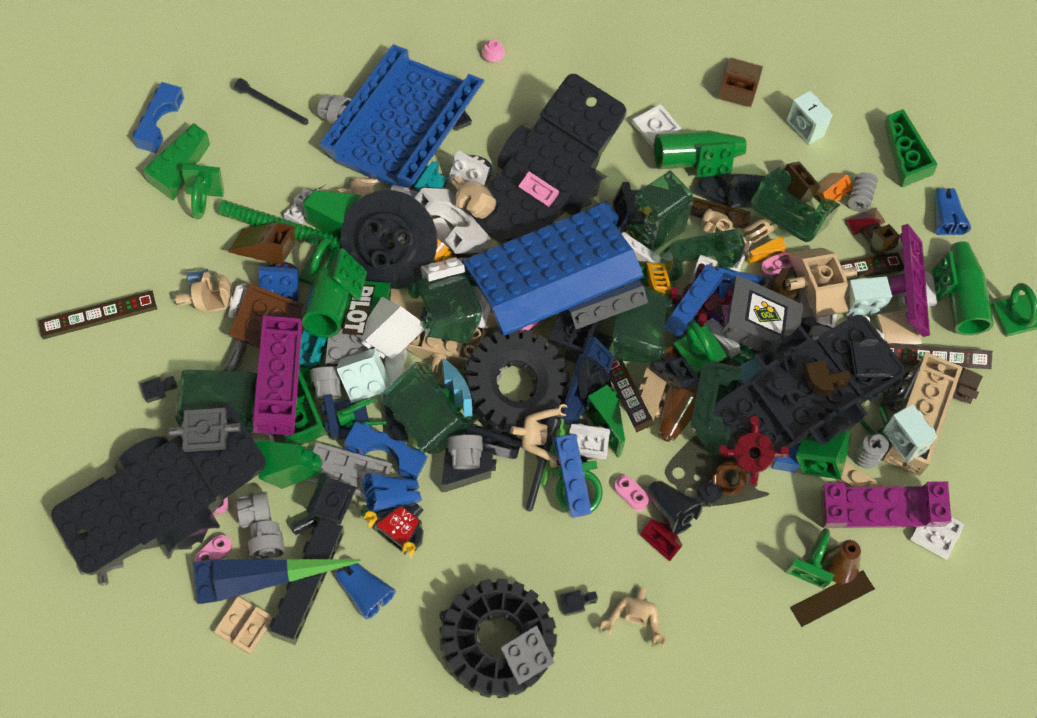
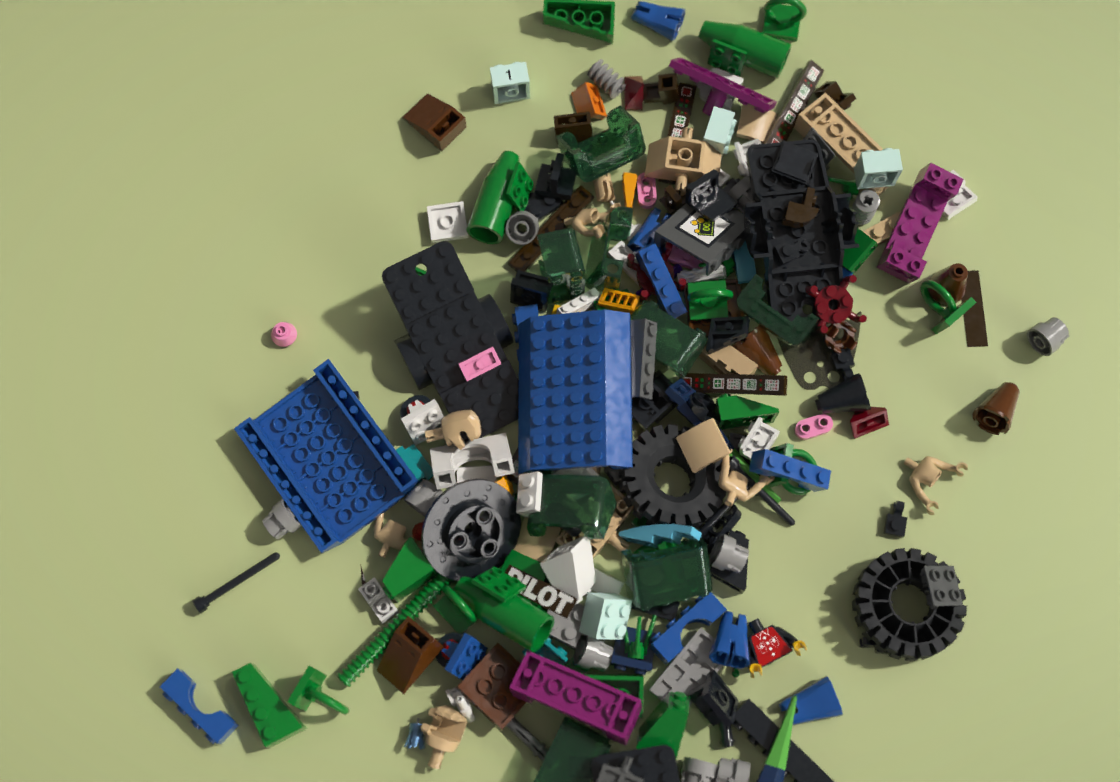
camera: 60 degrees left, 10 degrees up
(556, 388) = (703, 445): none -> tan slope
(686, 174) = (515, 234): none -> light grey piece
(739, 654) = (998, 409): none -> reddish brown cone
(797, 305) = (708, 198): none -> black bracket
(842, 676) = (1048, 336): none -> light grey piece

